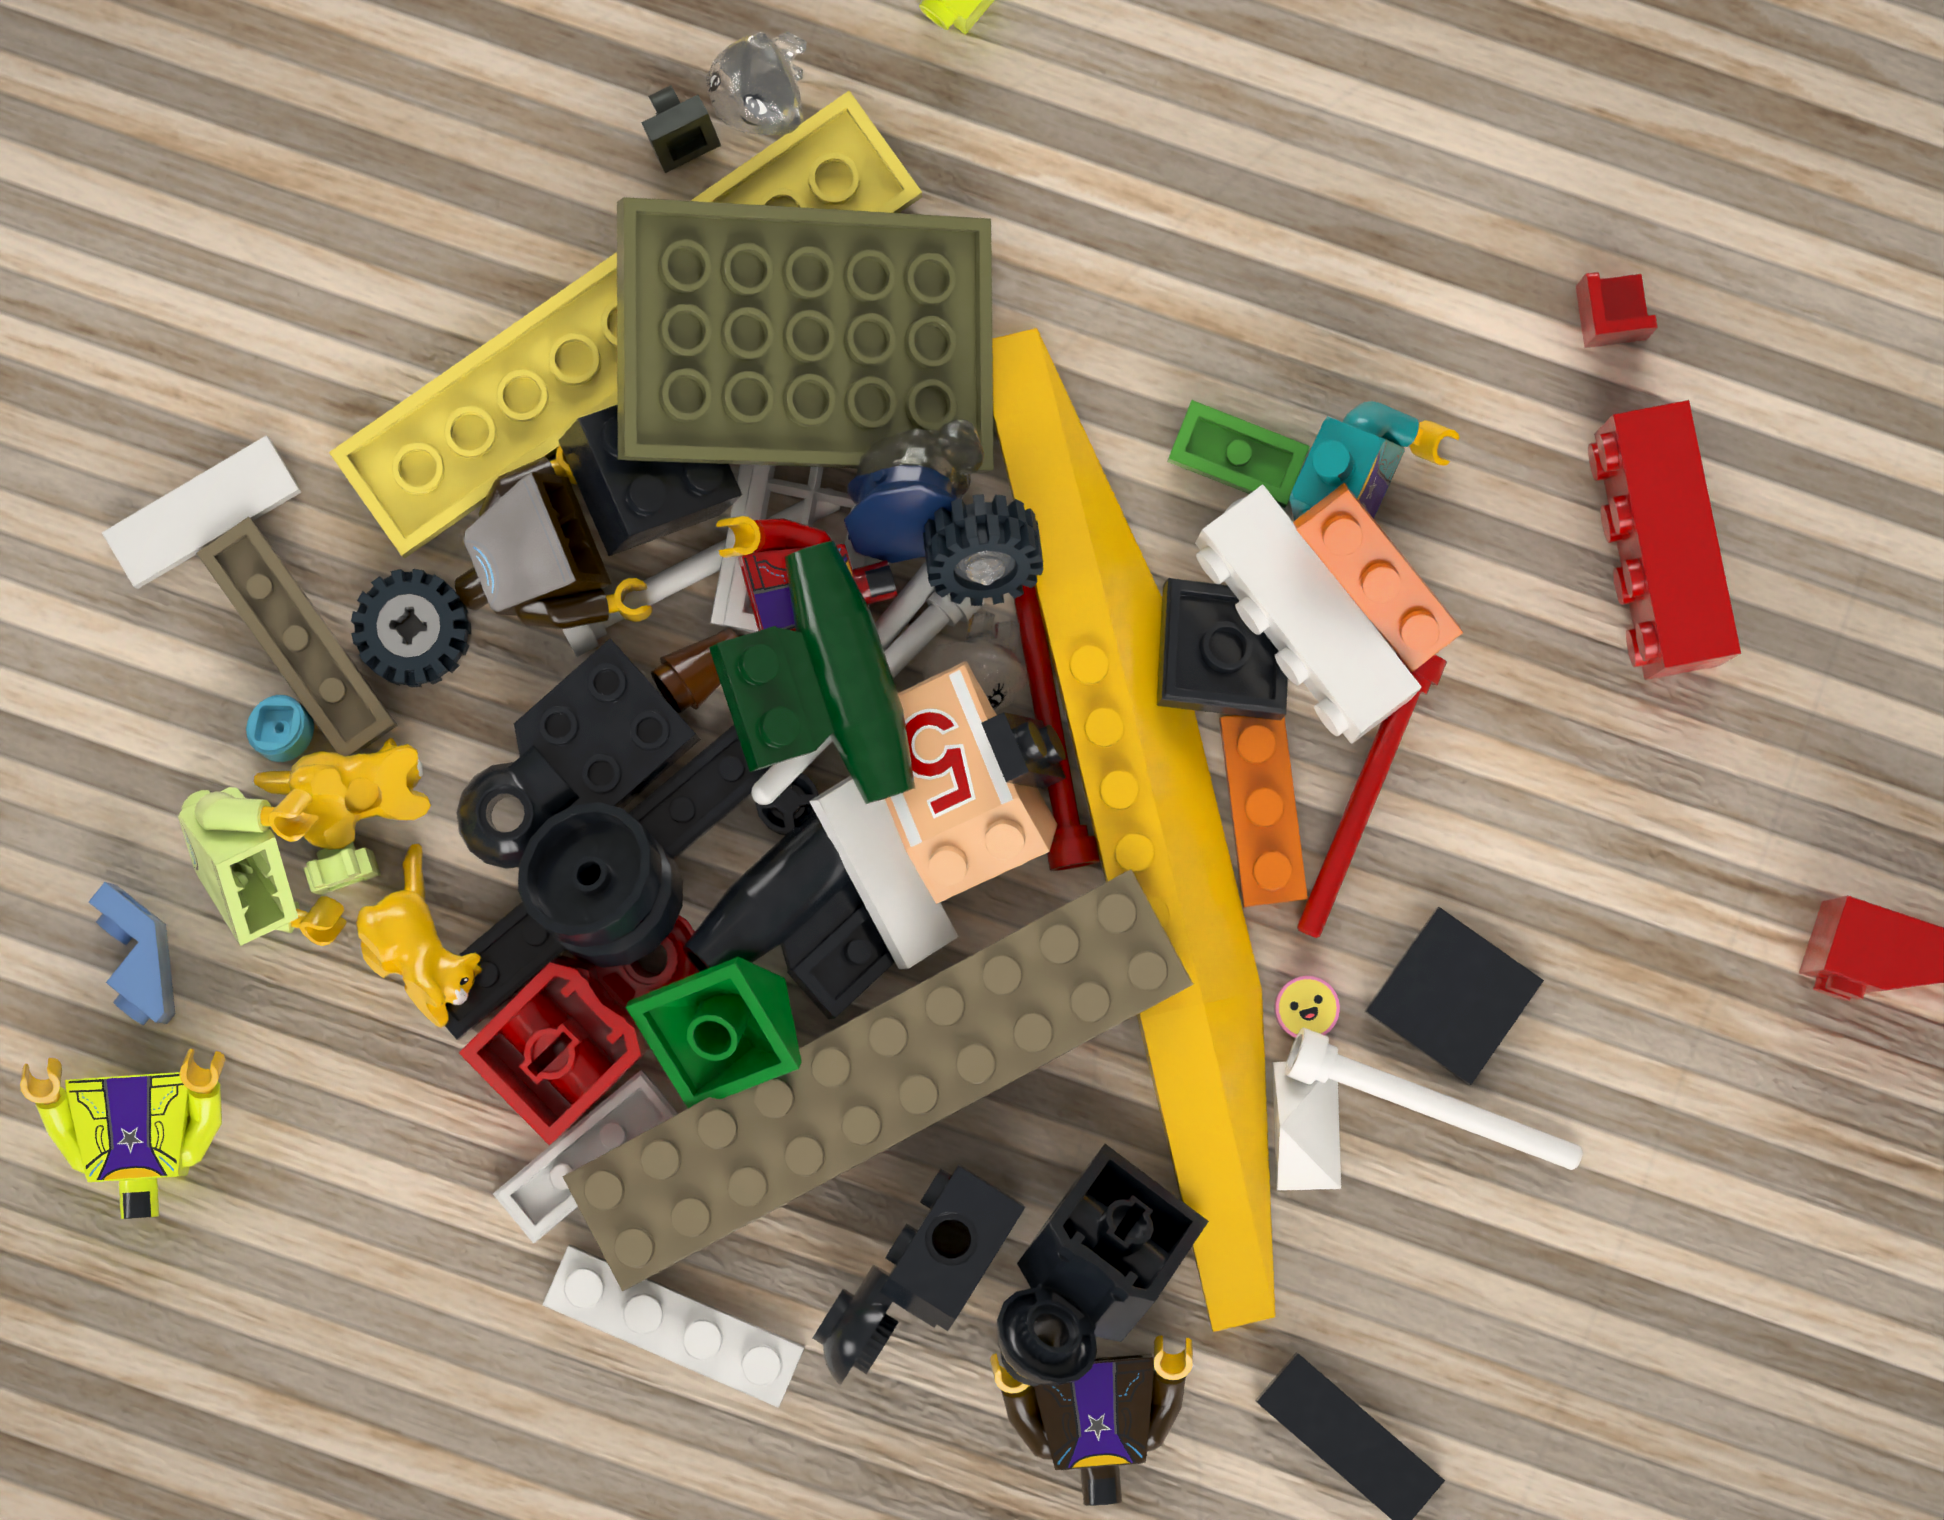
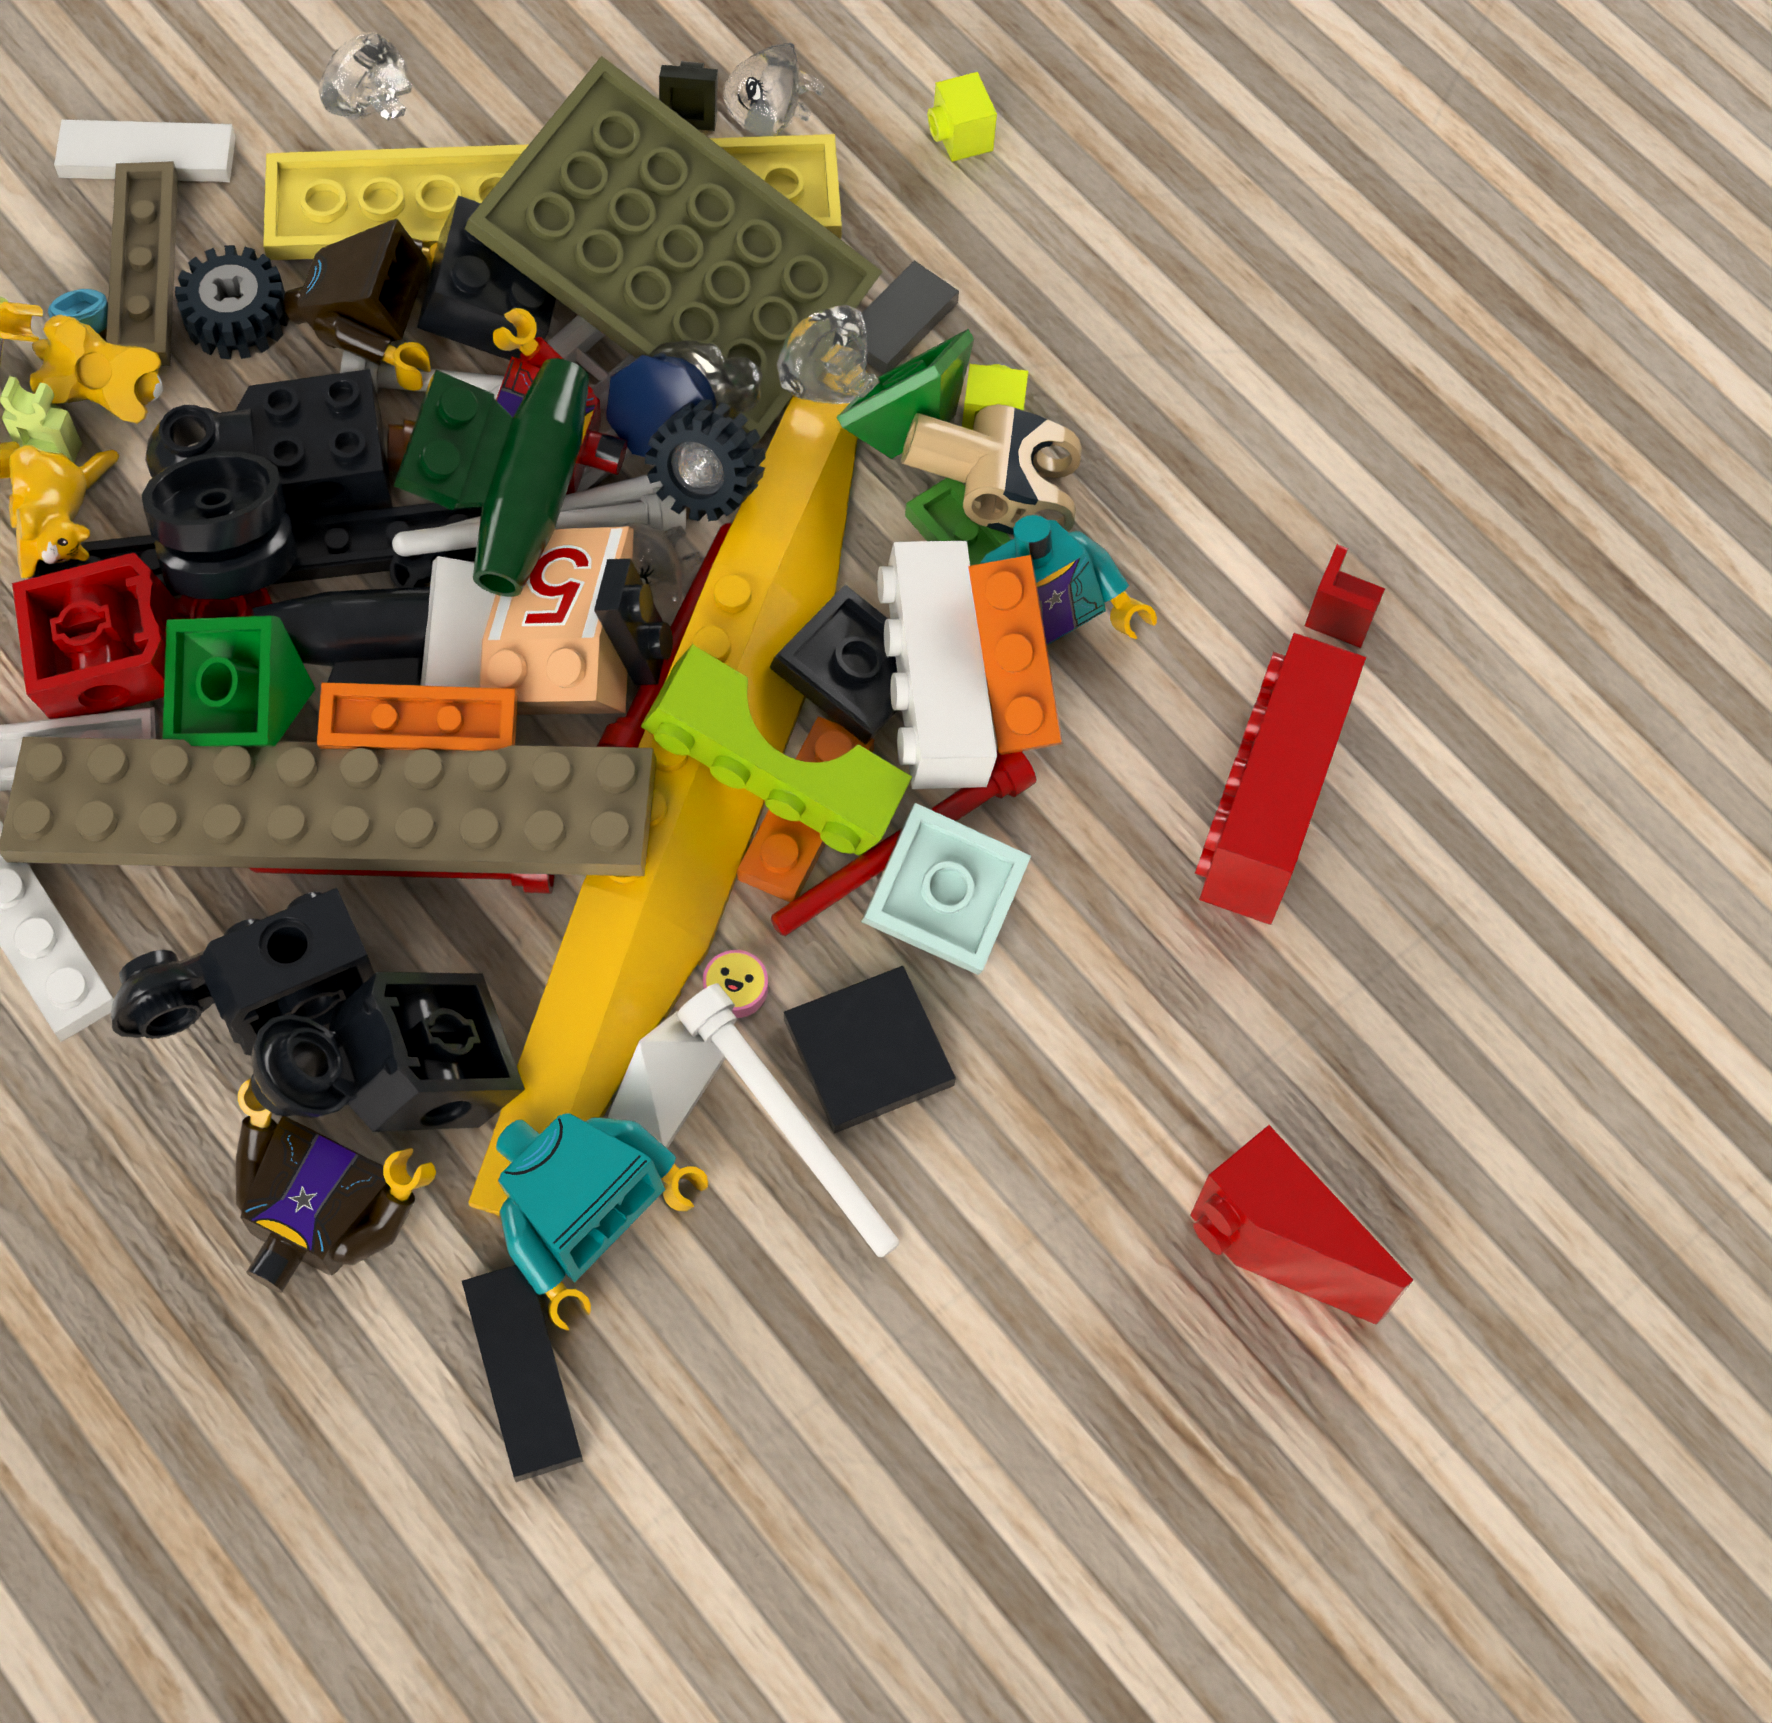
camera: 30 degrees right, 20 degrees down
(360, 308) = (365, 79): none -> clear piece
(904, 961) = (416, 717): none -> orange plate
(1012, 361) = (827, 357): none -> clear piece
(1032, 250) = (905, 315): none -> dark grey tile
(1102, 344) = (922, 385): none -> green slope
(1159, 807) = (708, 717): none -> lime arch
(1180, 296) = (993, 386): none -> neon yellow plate
(1232, 374) = (998, 463): none -> tan connector
(1311, 1281) = (578, 1194): none -> teal torso
(1436, 818) = (946, 889): none -> light aqua plate

